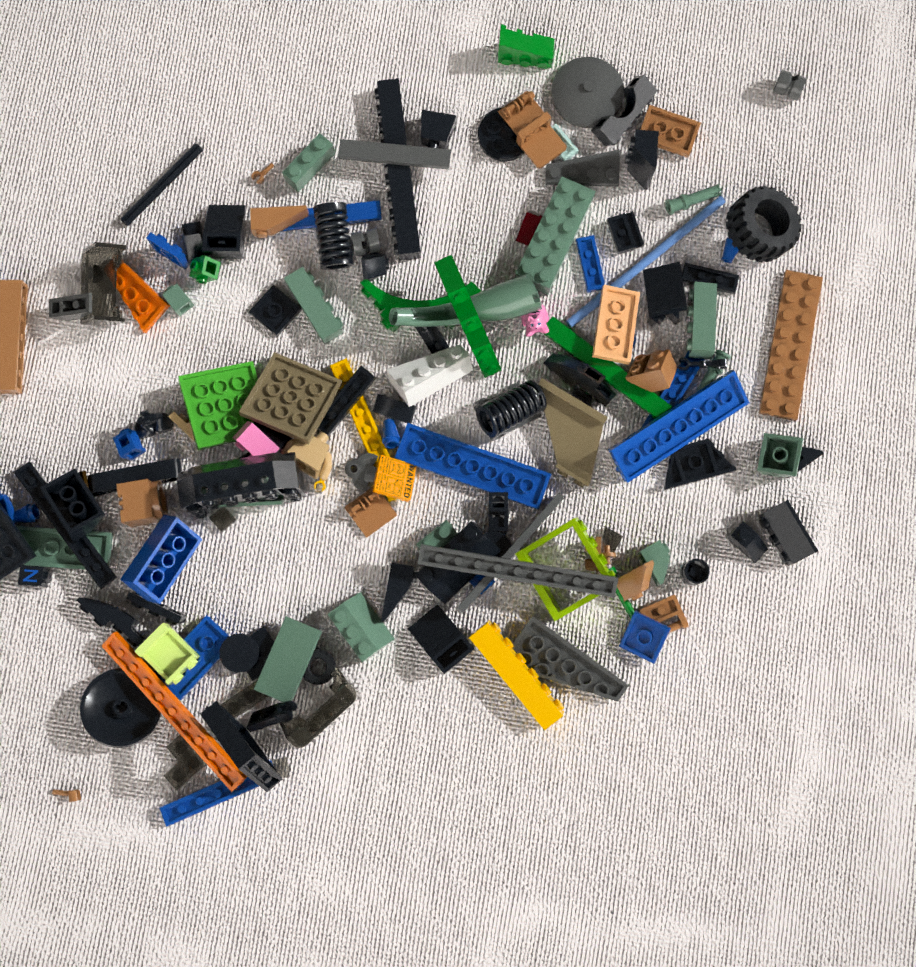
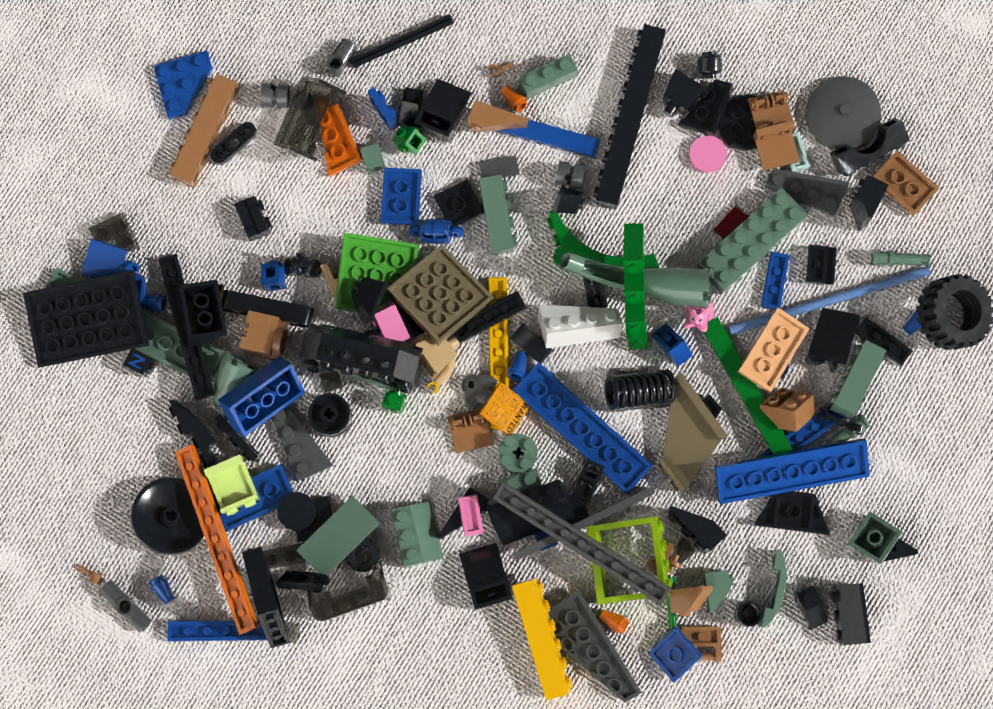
camera: 25 degrees right, 0 degrees up
(45, 346) = (233, 151): none -> black beam
(63, 278) = (275, 95): none -> dark grey wheel
(70, 307) = (272, 126): dark grey slope -> none
(87, 399) = (252, 218): none -> black brick
(101, 805) = (116, 597): none -> dark grey piece
(110, 219) = (340, 56): none -> dark grey piece
(124, 550) = (230, 374): none -> sand green cone
(141, 779) = (162, 589): none -> blue cone
(188, 763) = (211, 590): clear smoke plate -> none
(219, 324) = (401, 196): none -> blue plate
(220, 593) = (299, 446): none -> dark grey wing
(223, 426) = (367, 297): none -> black slope
(223, 548) = (326, 404): none -> black wheel
(264, 342) = (436, 231): none -> blue piece
(286, 195) = (515, 100): none -> orange cone
(289, 513) = (394, 401): none -> green brick
(305, 258) = (503, 166): none -> dark grey tile
(338, 235) = (536, 157): black piece -> none
(394, 154) = (631, 102): dark grey tile -> none
(403, 588) = (470, 515): none -> bright pink tile
(415, 506) = (512, 444): none -> sand green brick
(450, 95) = (709, 64): none -> black head
(467, 134) = (708, 111): none -> black wing
(482, 175) = (707, 154): none -> bright pink tile
(522, 357) = (672, 344): none -> blue slope
(525, 49) = (799, 49): green wedge -> none
(576, 371) = (718, 380): black slope -> none
(576, 630) = (616, 622): none -> orange cone
(620, 513) = (700, 529): none -> black slope
(703, 516) = (778, 565): none -> sand green slope
(790, 345) = (933, 437): medium nougat plate -> none

